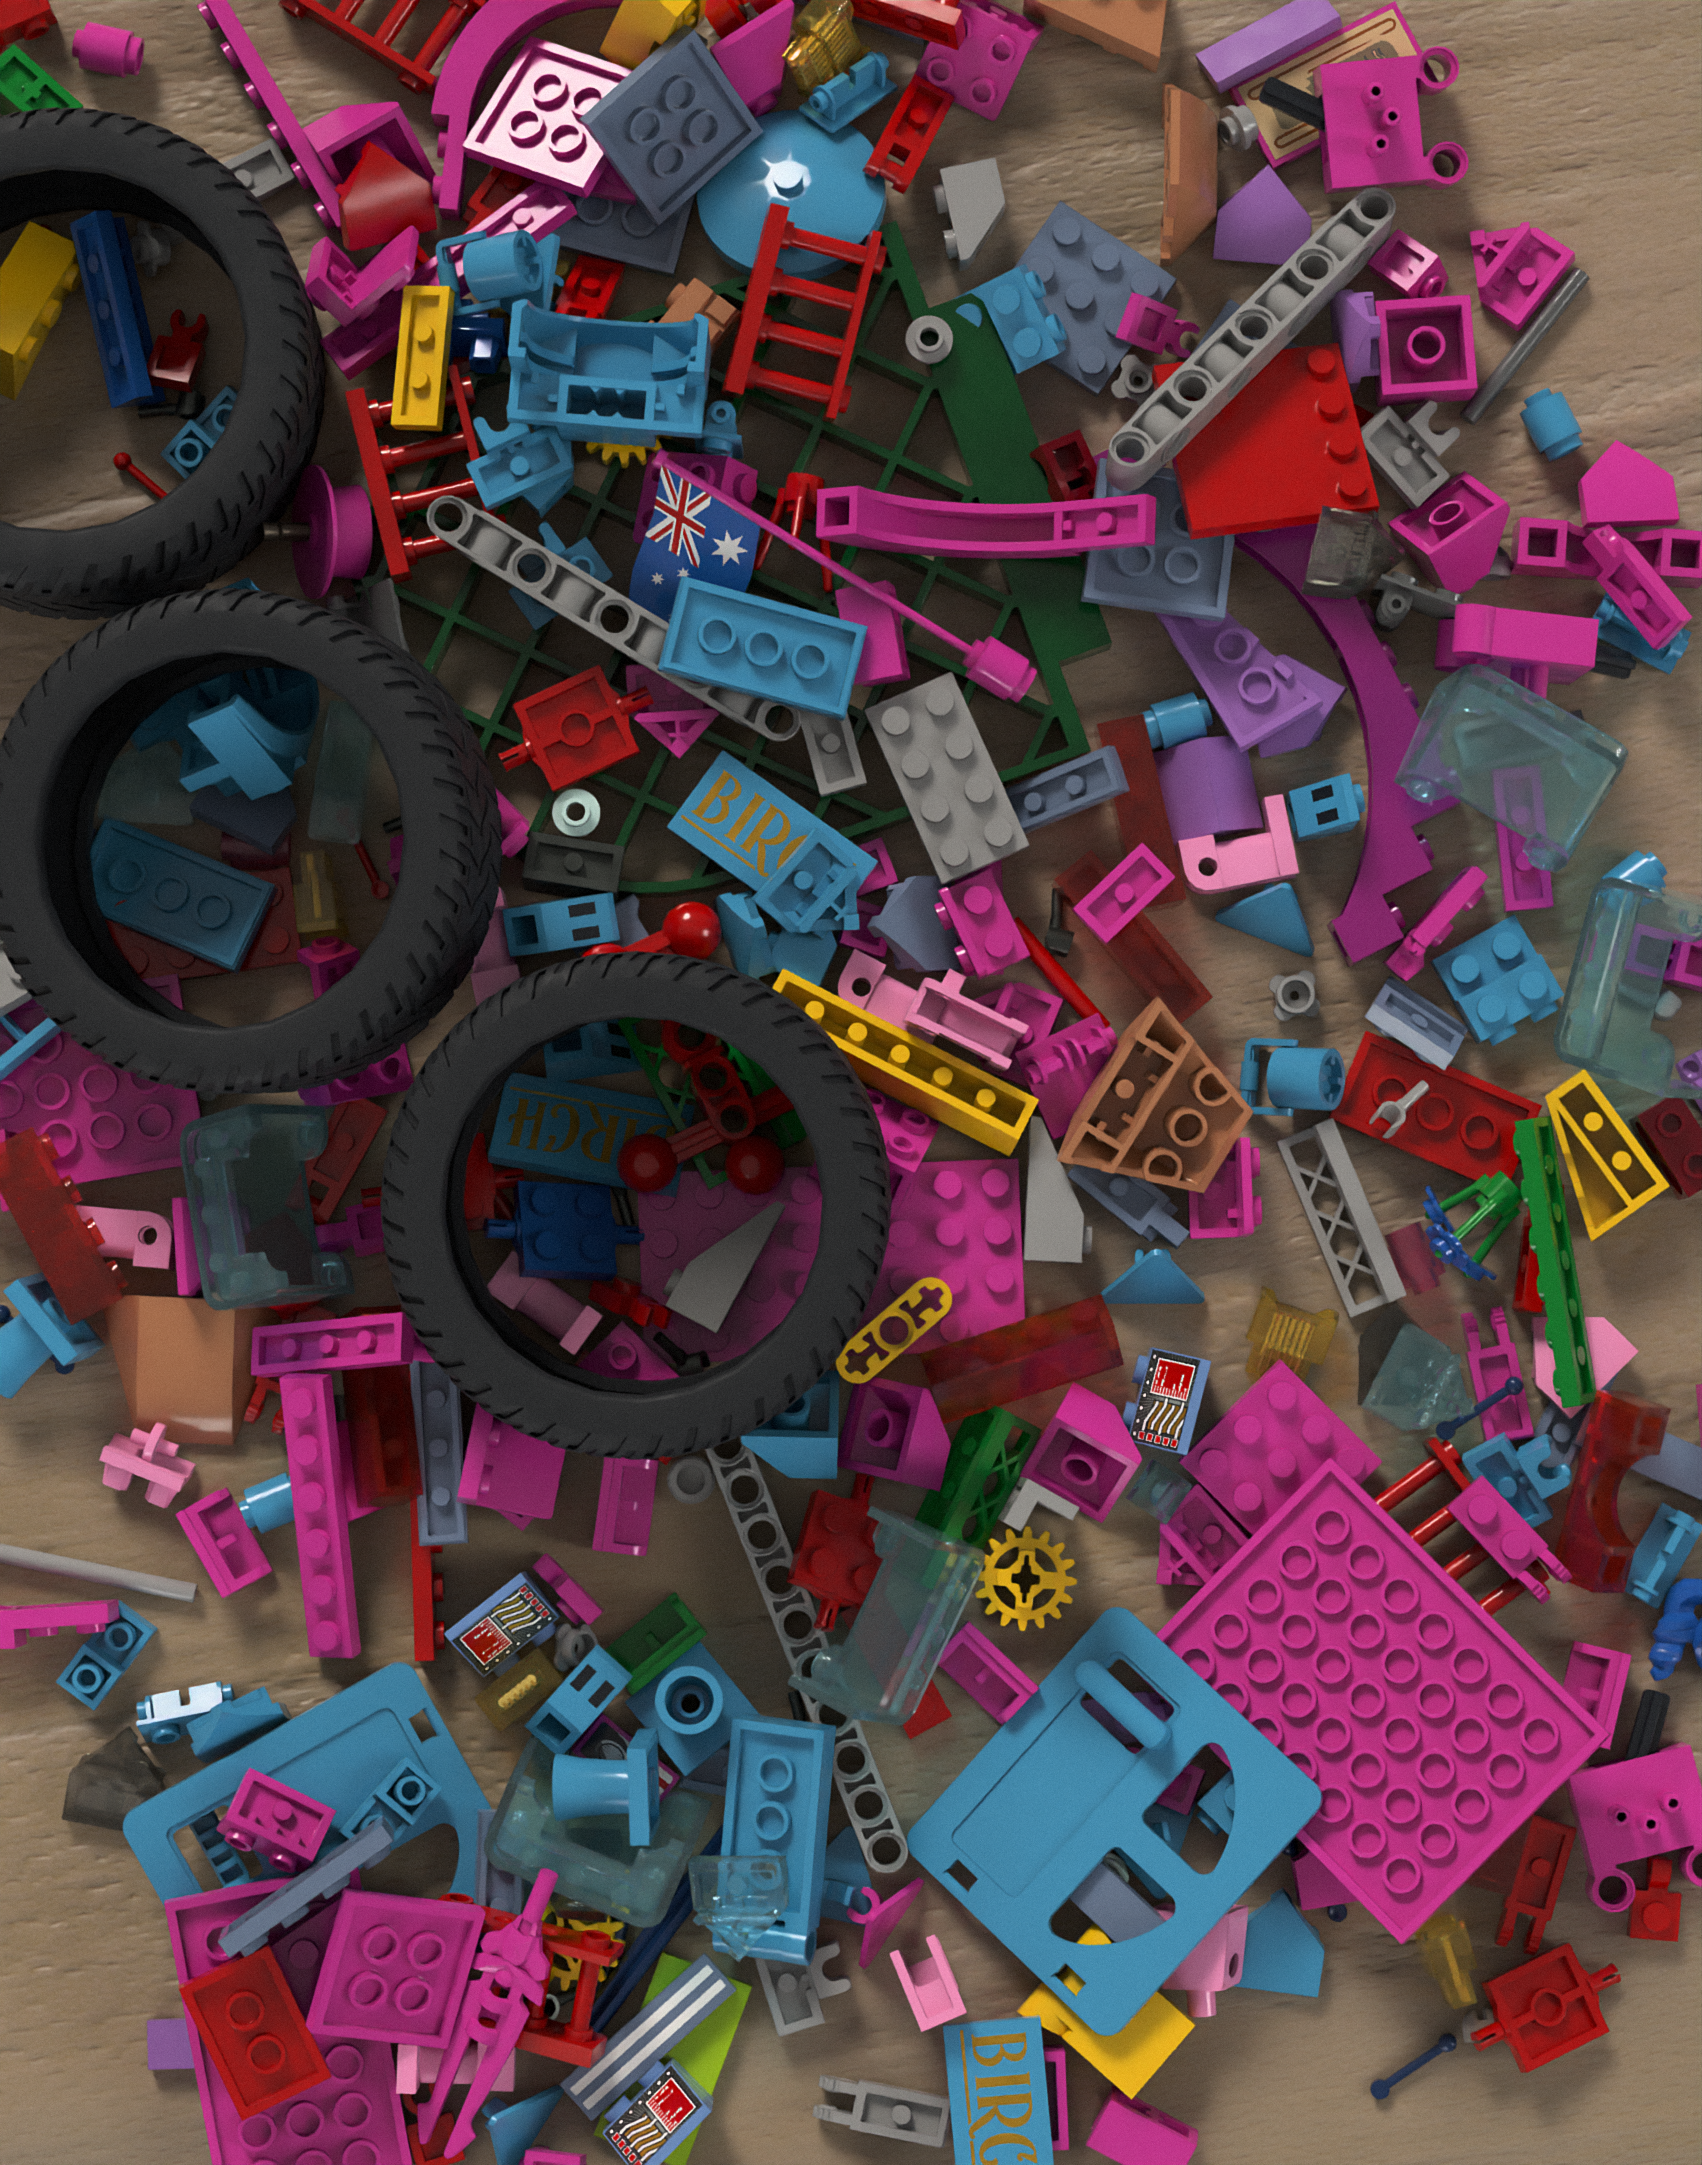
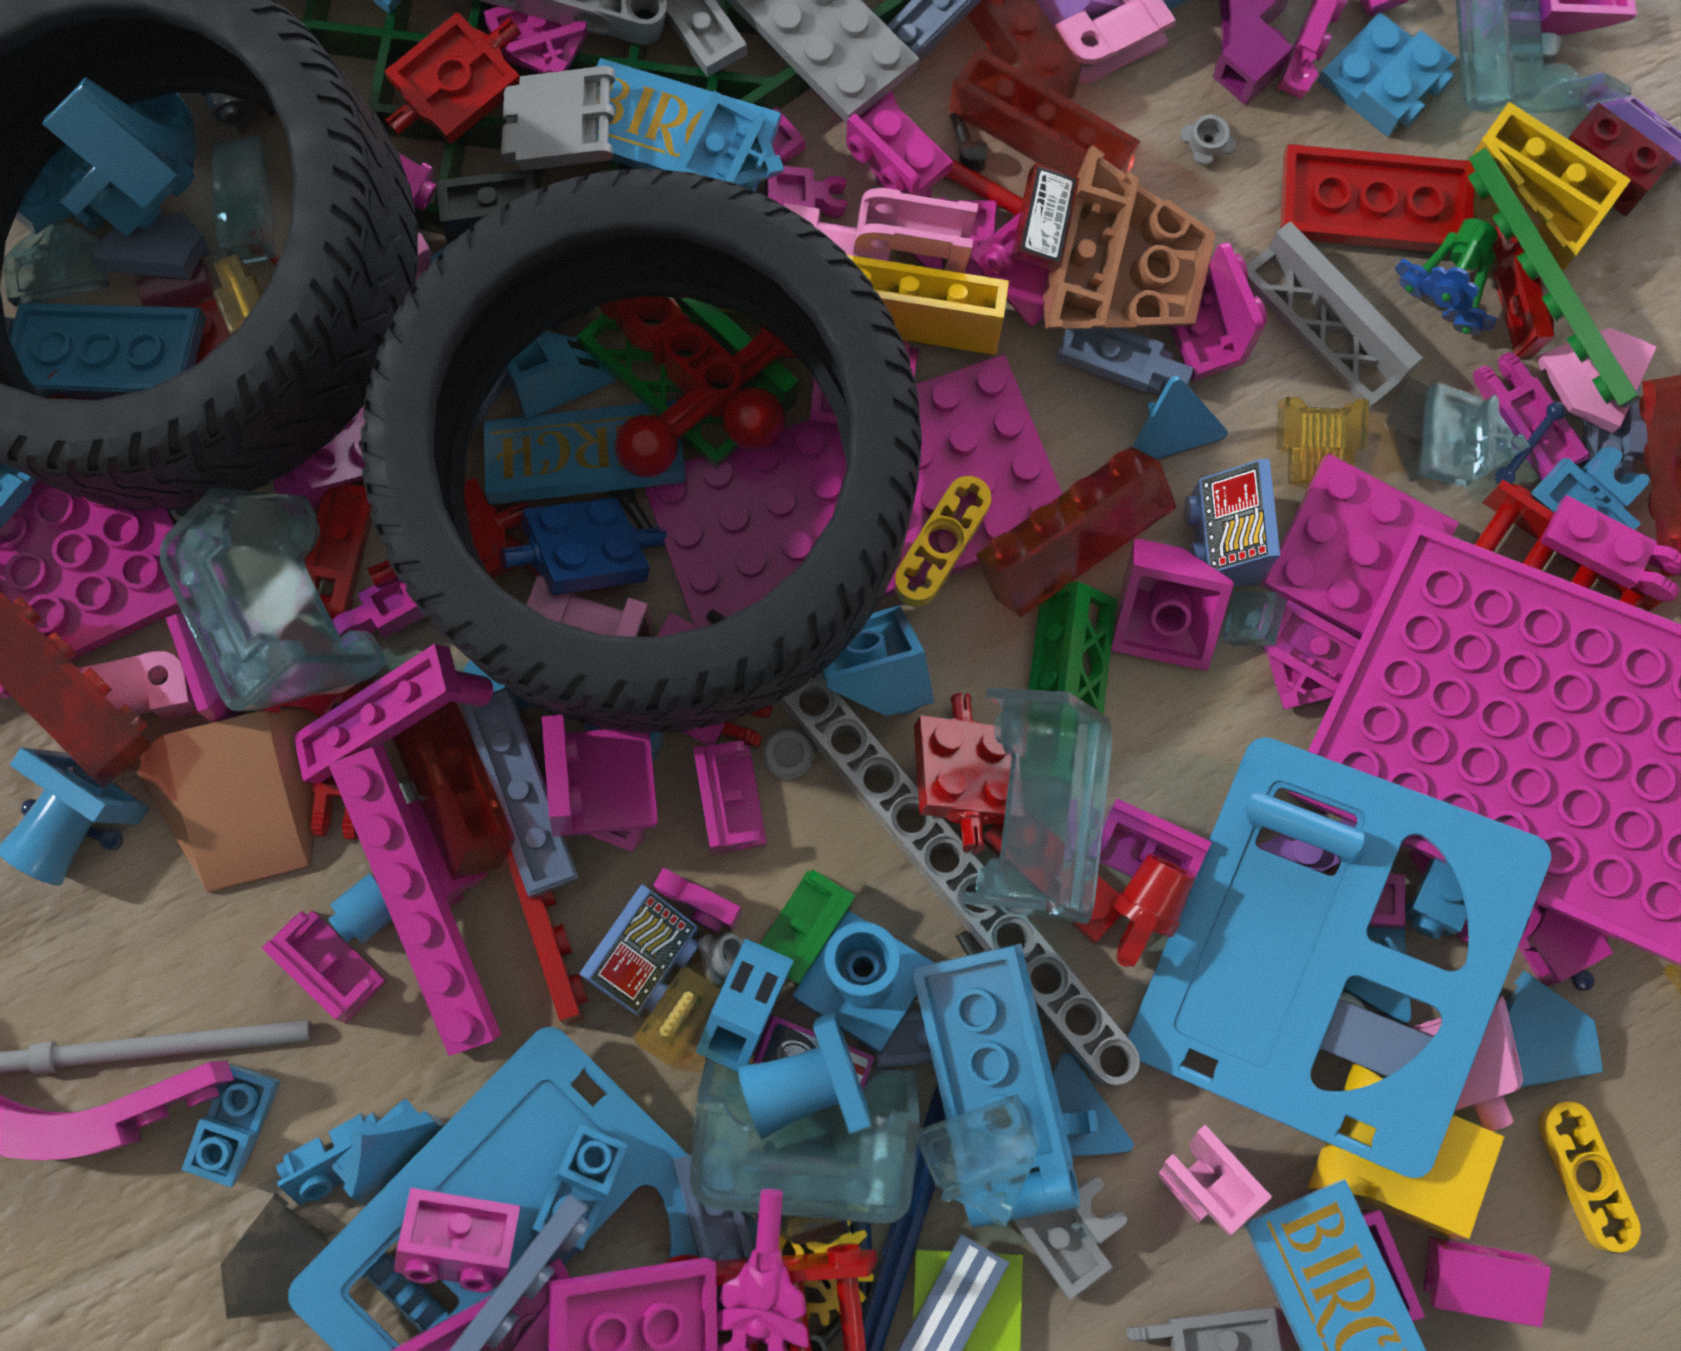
camera: 20 degrees left, 10 degrees down
(149, 1458) = (197, 911): bright pink hips -> none
(580, 827) = (480, 164): light aqua plate -> none
(626, 1298) = (667, 591): red plate -> none
(662, 809) = (557, 118): none -> light grey plate
(717, 1276) = (751, 535): light grey slope -> none
(882, 1918) = (1132, 1135): dark pink piece -> none
(894, 1434) = (978, 641): dark pink slope -> none
(913, 927) = (833, 169): sand blue slope -> none
(965, 1726) = (1152, 903): none -> red piece
(1024, 1498) = (1152, 645): light grey fence -> none
(1046, 1579) = (1174, 737): yellow gear -> none
(1052, 1211) = (1052, 384): light grey slope -> none
(1093, 1049) = (1045, 217): none -> tile
(1123, 893) = (1024, 67): dark pink plate -> none
(1260, 2118) = (1611, 1185): none -> yellow beam
(1271, 917) = (1163, 73): dark azure piece -> none
(1295, 1077) = (1243, 197): dark azure piece -> none
(1395, 1111) = (1346, 200): light grey hand -> none
(1414, 1258) = (1416, 327): clear pink brick -> none
(1416, 1023) = (1351, 130): sand blue plate -> none

